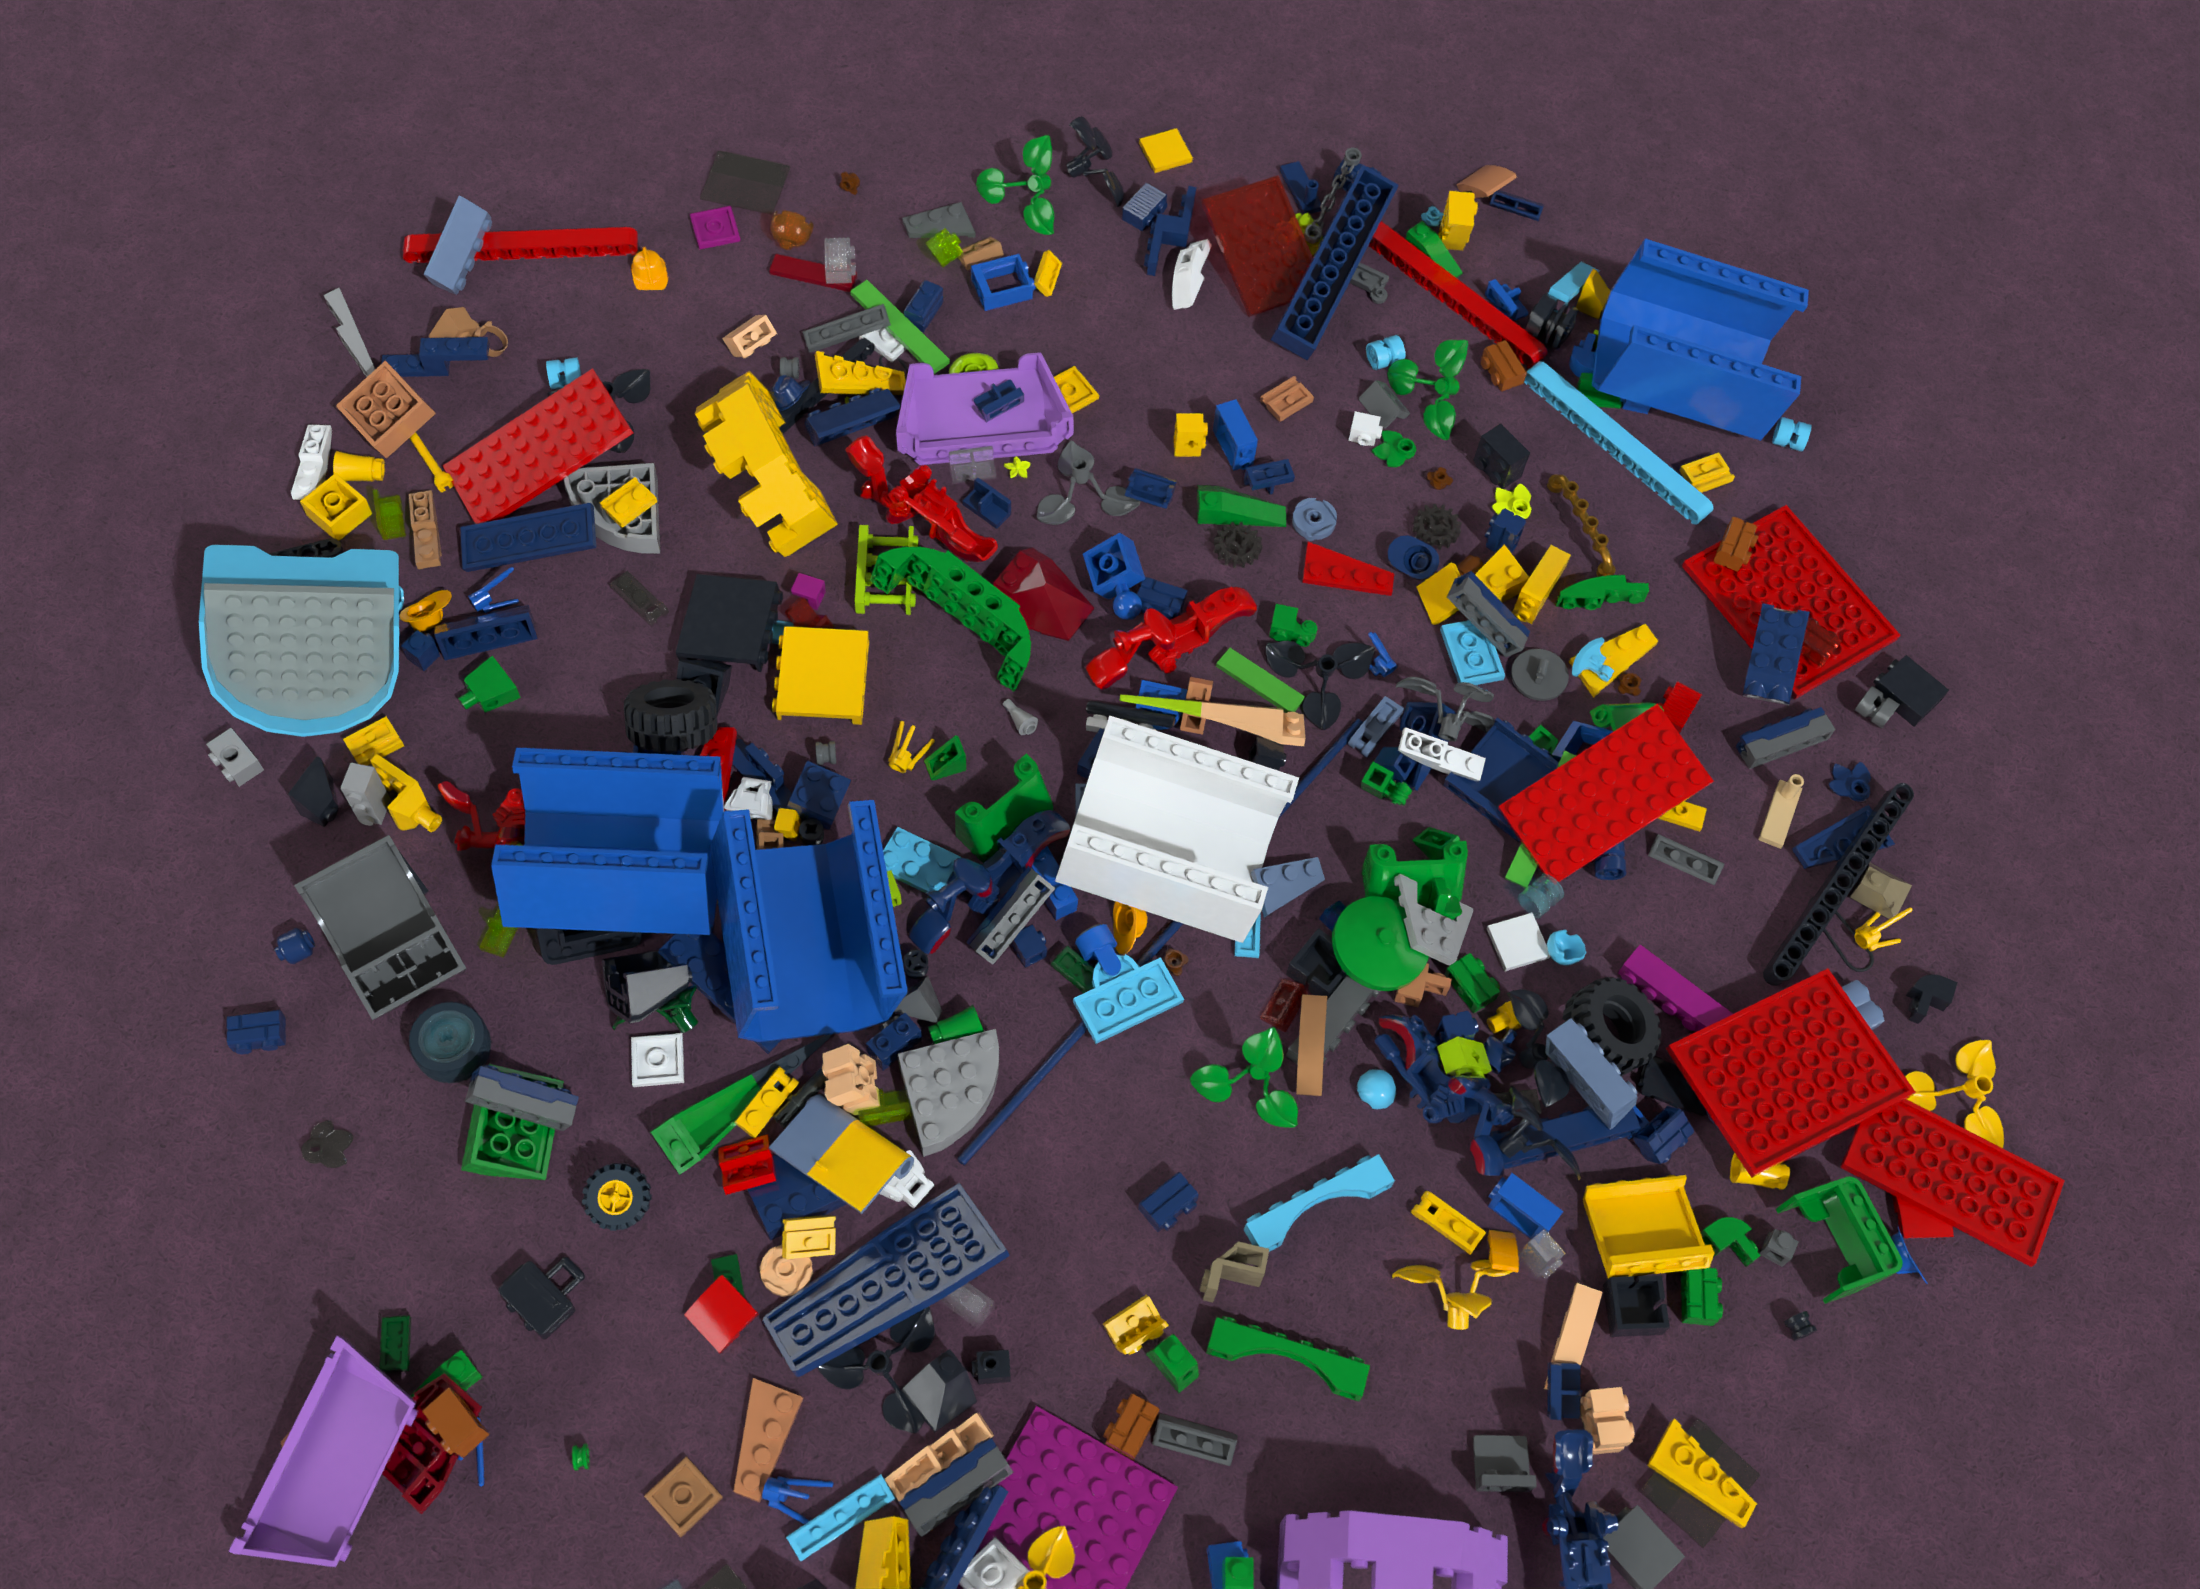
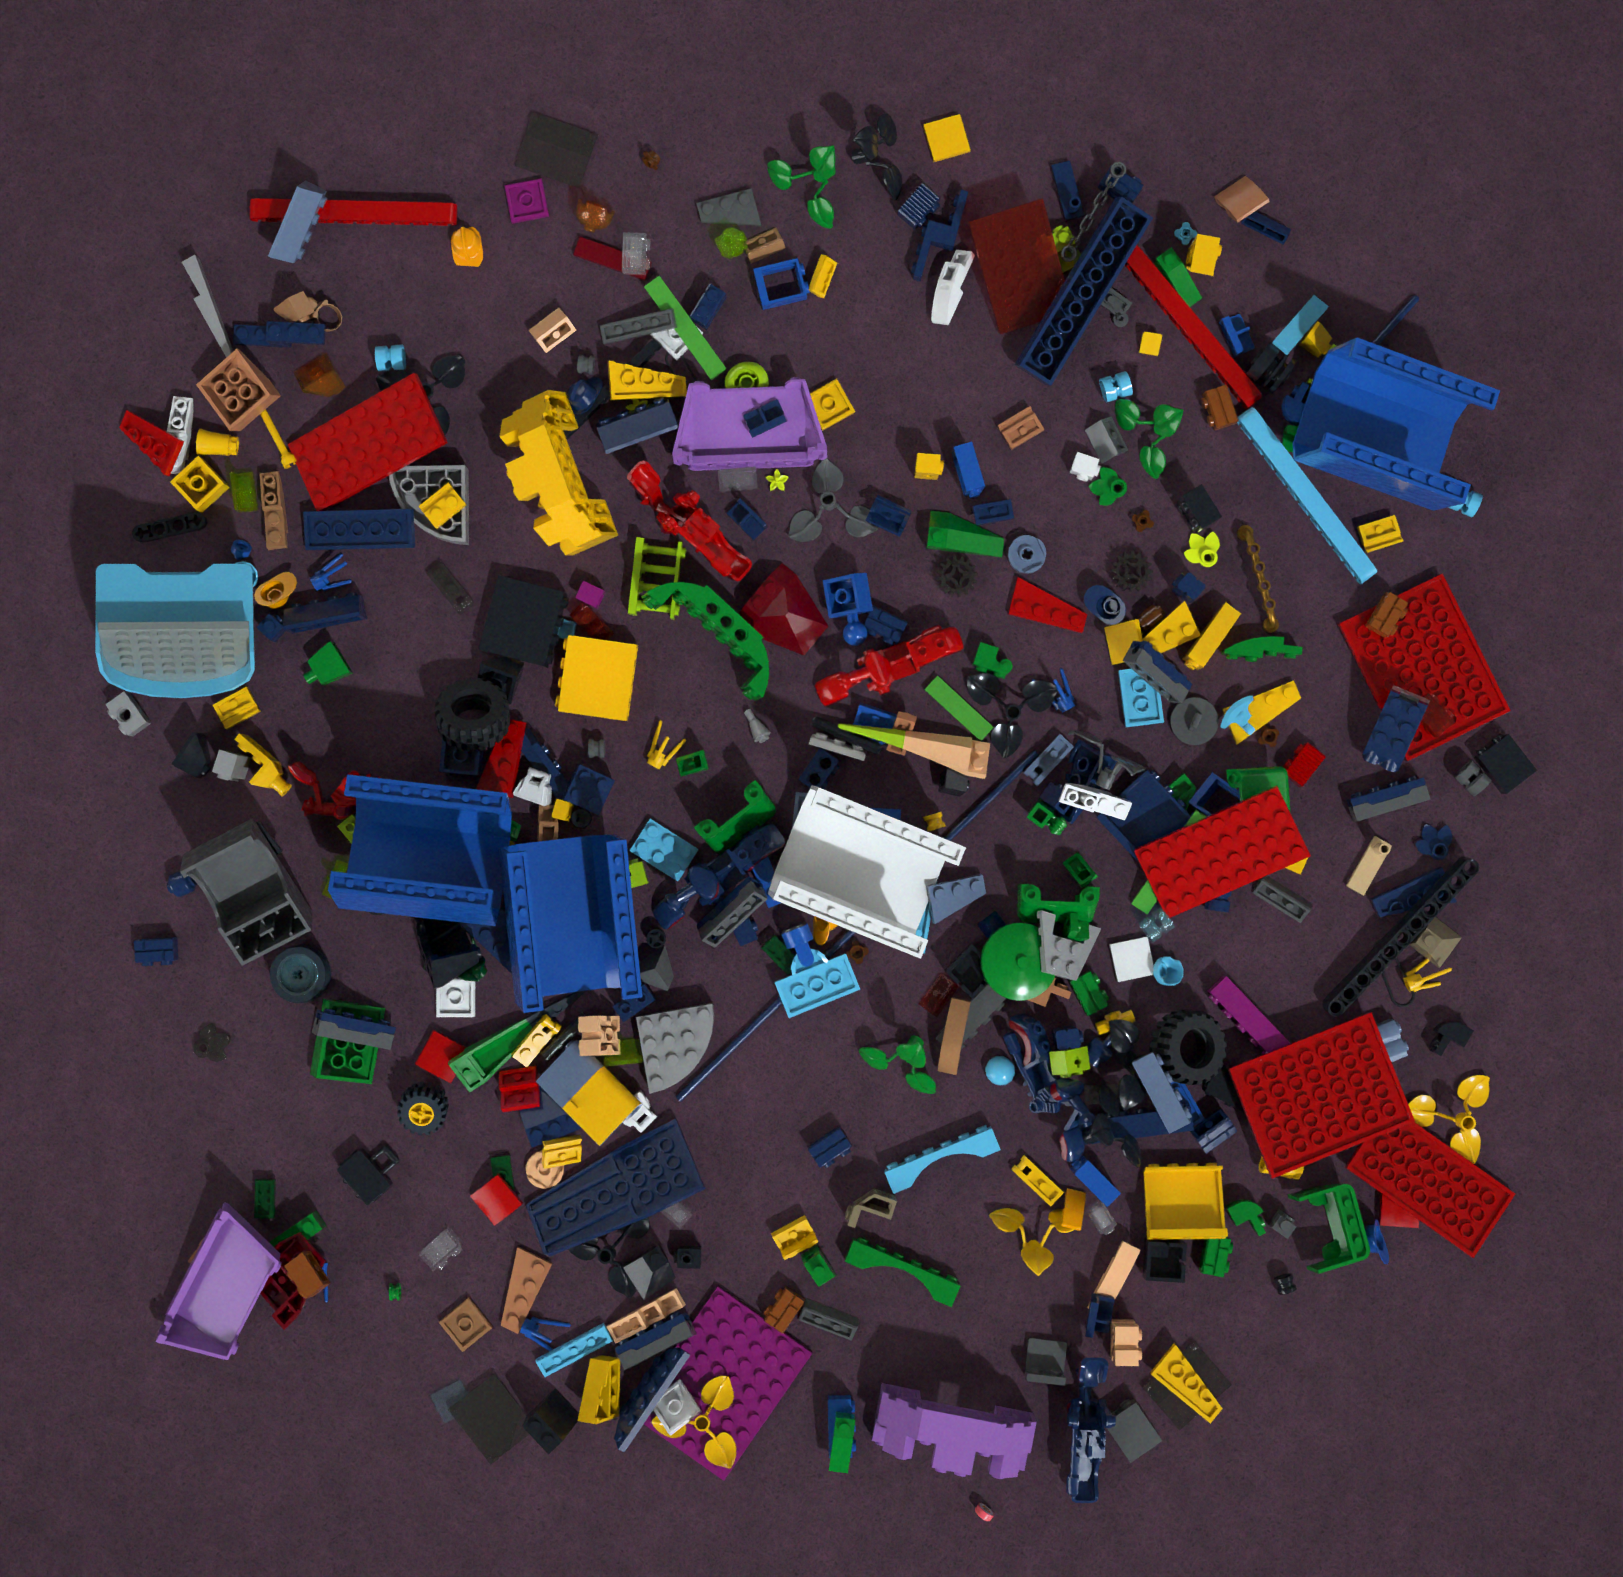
camera: 15 degrees right, 25 degrees up
(282, 465) = (154, 441): none -> red wing
(485, 396) = (320, 377): none -> clear orange slope
(633, 1136) = (437, 1053): none -> red slope
(646, 1389) = (441, 1248): none -> clear brick
(957, 1026) = (683, 996): green plant -> none
(1415, 313) = (1150, 343): none -> yellow slope

